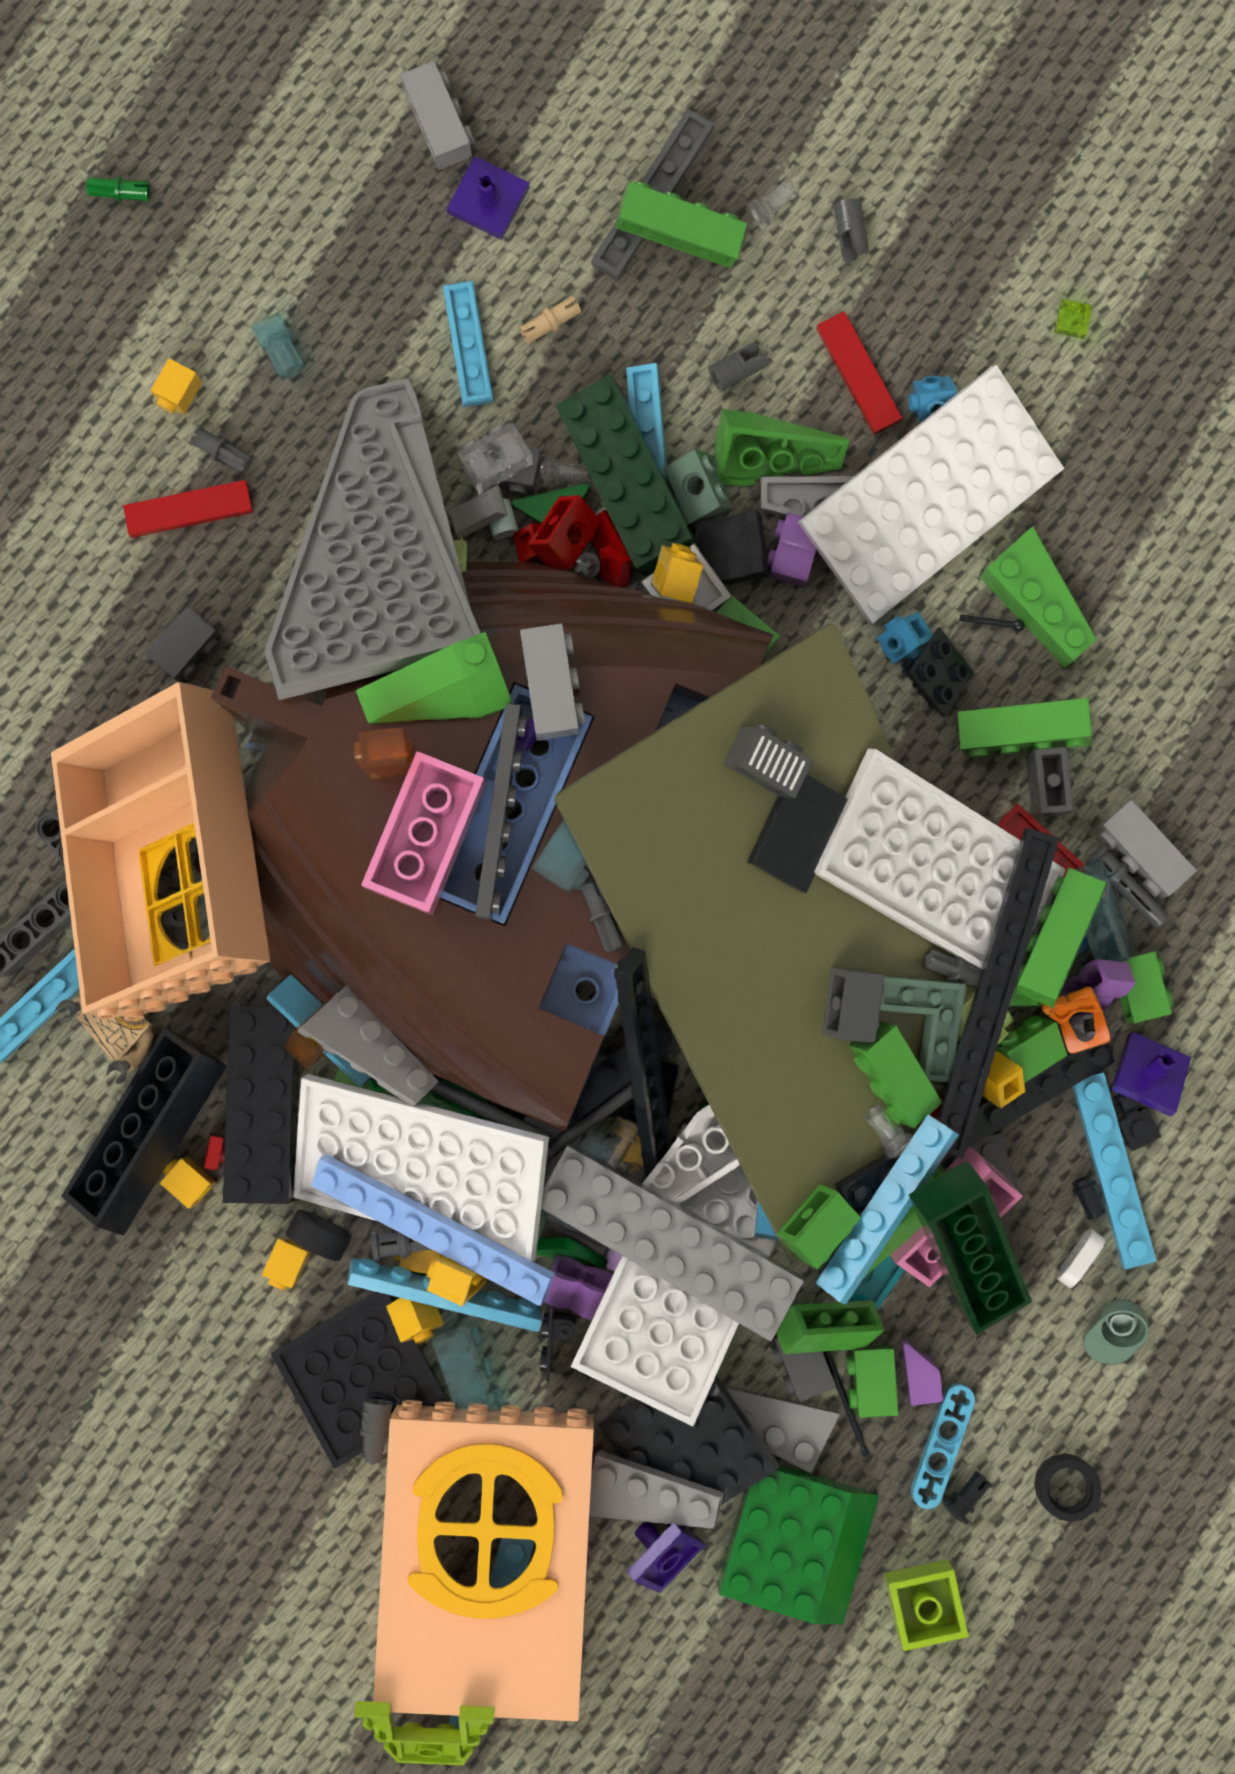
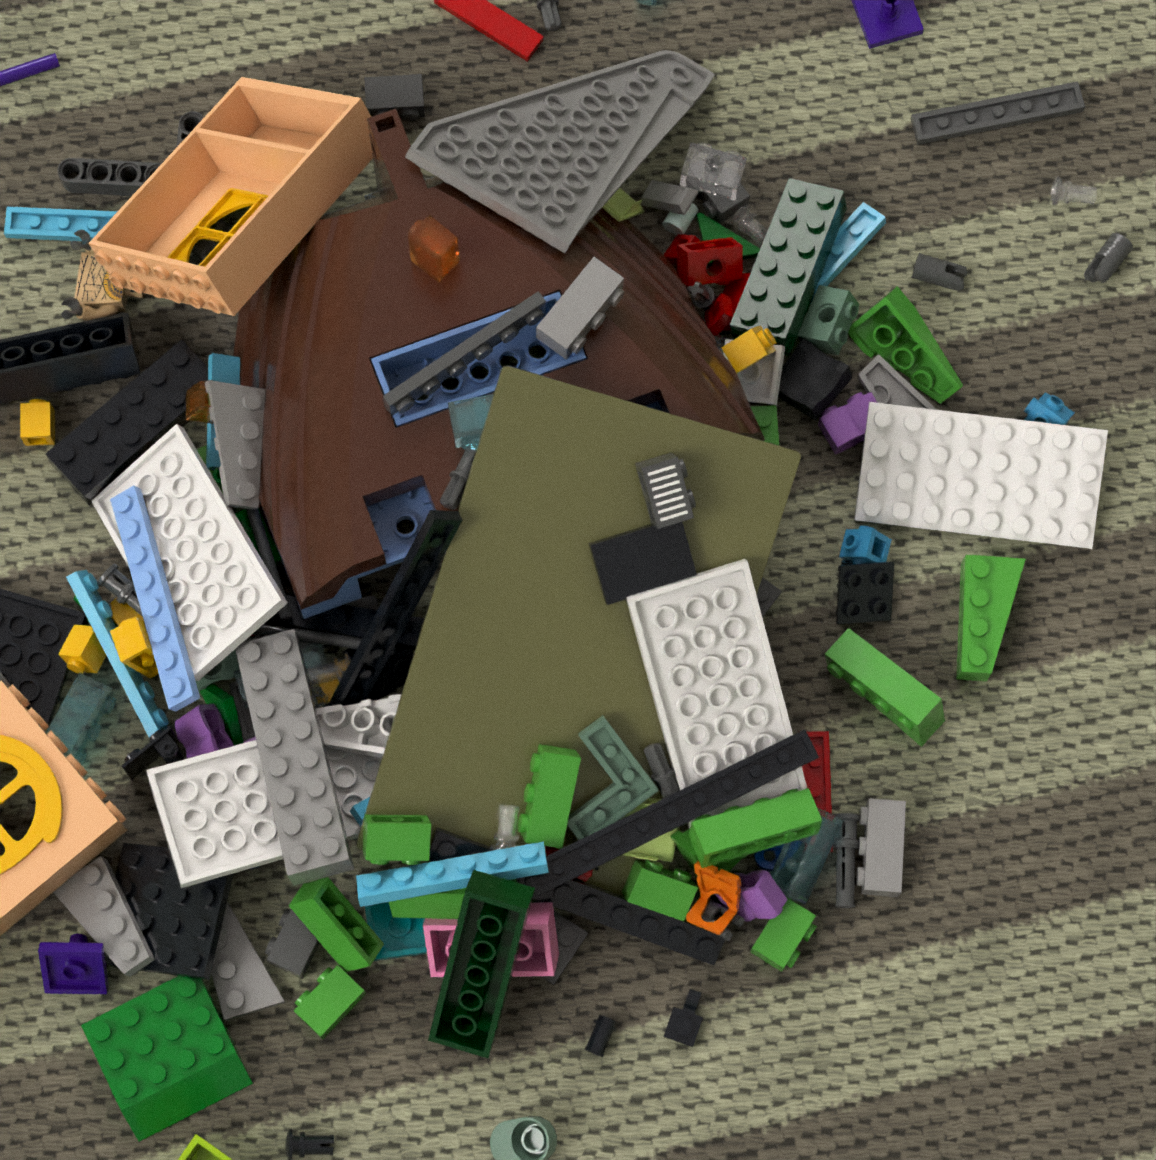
camera: 45 degrees right, 10 degrees down
(214, 1152) = (73, 420): red plate -> none
(285, 1263) = (42, 535): yellow brick -> none
(318, 1235) = (81, 536): black tyre -> none
(424, 833) = (405, 319): bright pink brick -> none
(442, 686) = (514, 246): bright green wedge -> none
(468, 344) = (776, 90): medium azure tile -> none
(526, 742) = (527, 335): dark purple tile -> none
(550, 320) = (846, 126): tan pin -> none
(680, 224) = (993, 146): bright green brick -> none
(843, 1396) = (302, 989): black piece -> none
(853, 1004) = (567, 715): dark grey brick -> none
(859, 373) = (1017, 355): red tile -> none
(922, 1376) = (363, 1034): medium lavender slope -> none
(948, 1447) = (327, 1090): medium azure beam -> none
(1004, 1081) = (618, 881): yellow brick -> none
(1018, 625) = (952, 619): black hinge -> none
(1049, 782) = (862, 736): dark grey brick -> none
(1080, 1258) = (551, 1068): white beam -> none
(1114, 1172) = (636, 1037): medium azure plate -> none
(1151, 1074) = (729, 996): dark purple tile -> none

